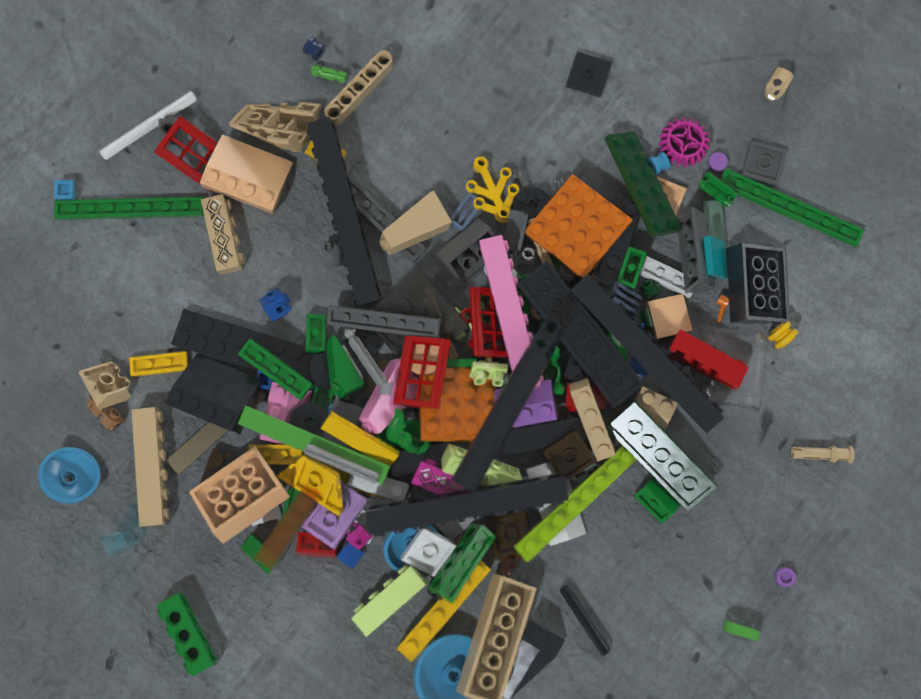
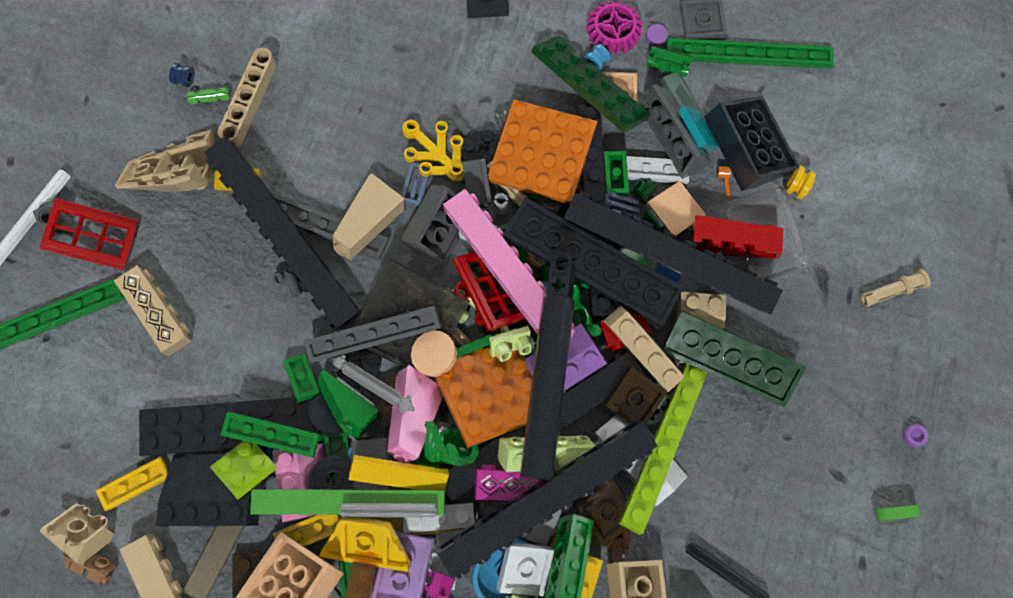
camera: 30 degrees left, 5 degrees down
(245, 386) = (243, 468): none -> lime plate
(246, 174) = (155, 234): light nougat slope -> none
(275, 304) = (243, 363): blue brick -> none
(439, 374) = (417, 375): red piece -> none
(657, 500) = (748, 408): green panel -> none

